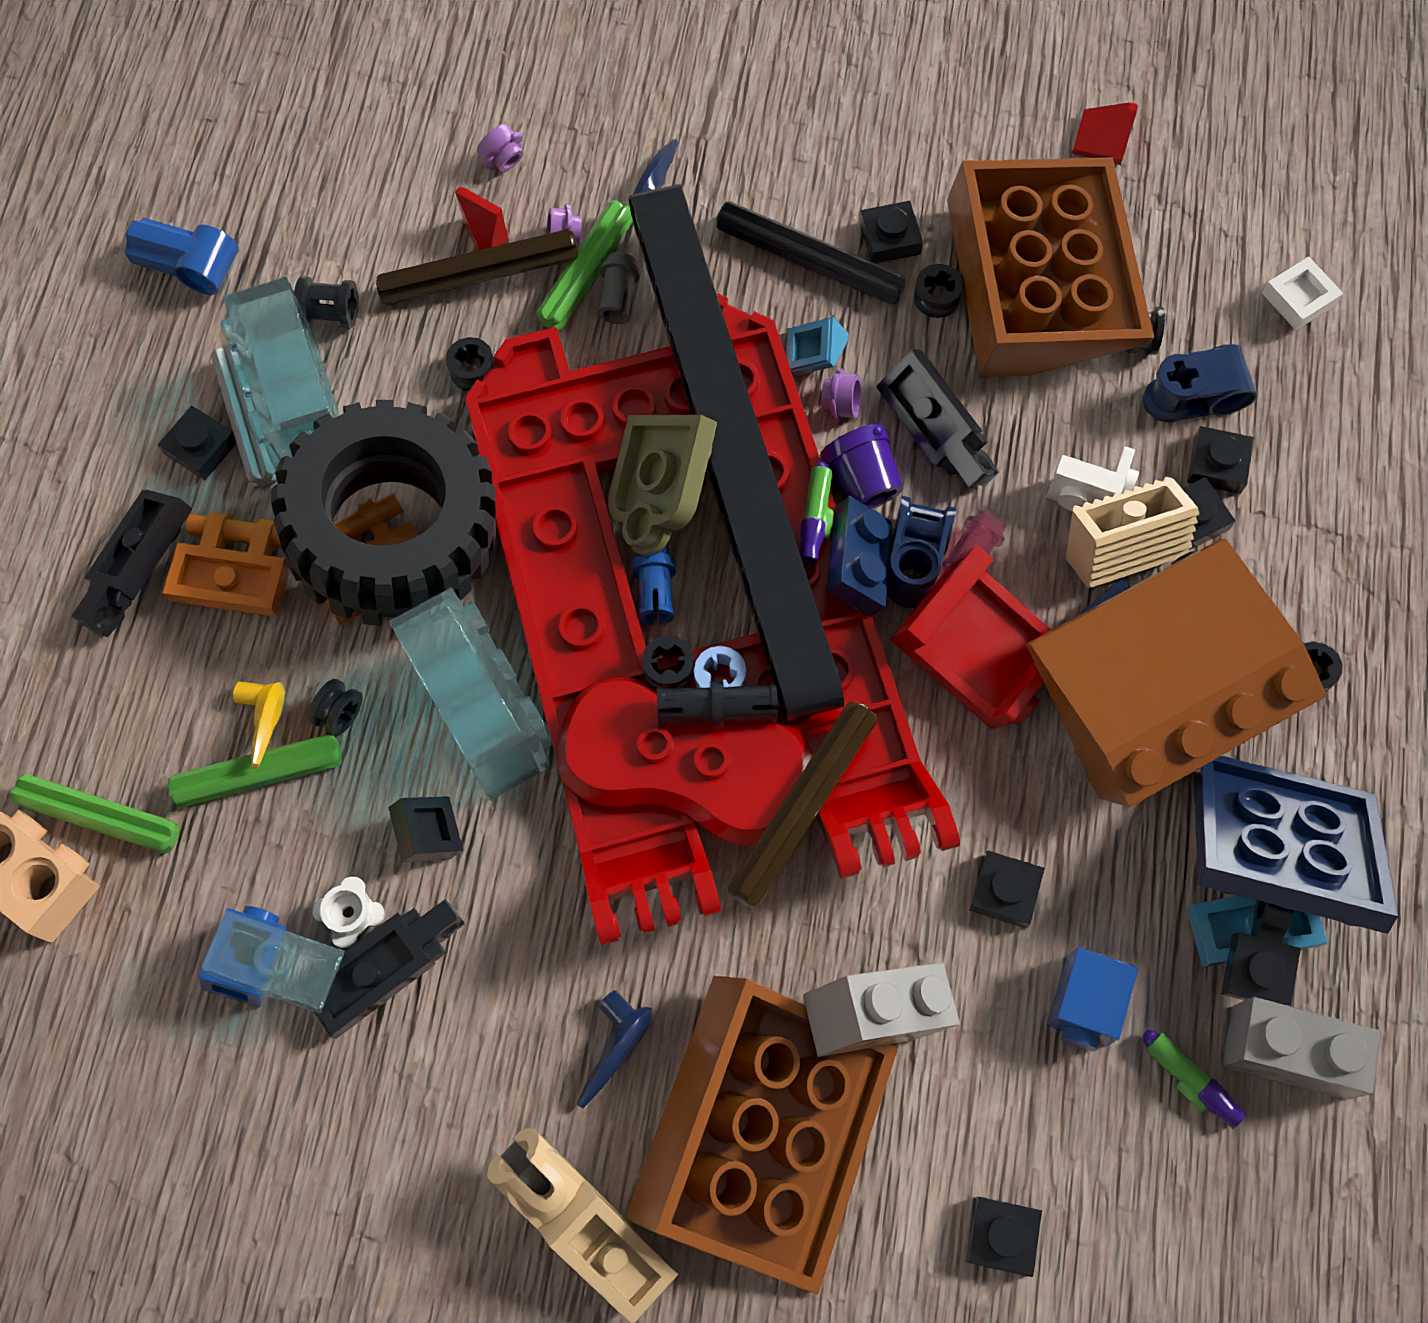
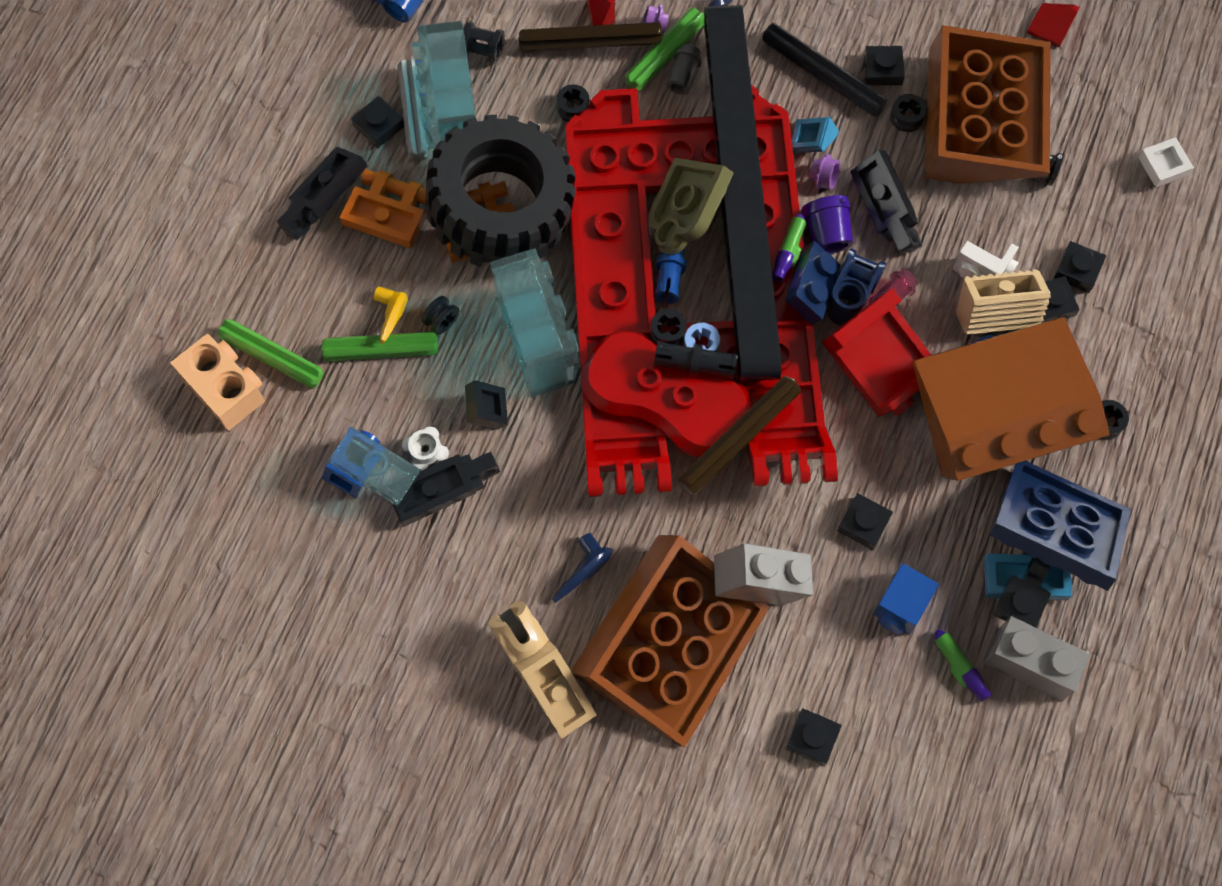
camera: 10 degrees right, 0 degrees up
(1200, 385) = (1079, 211): dark blue piece -> none

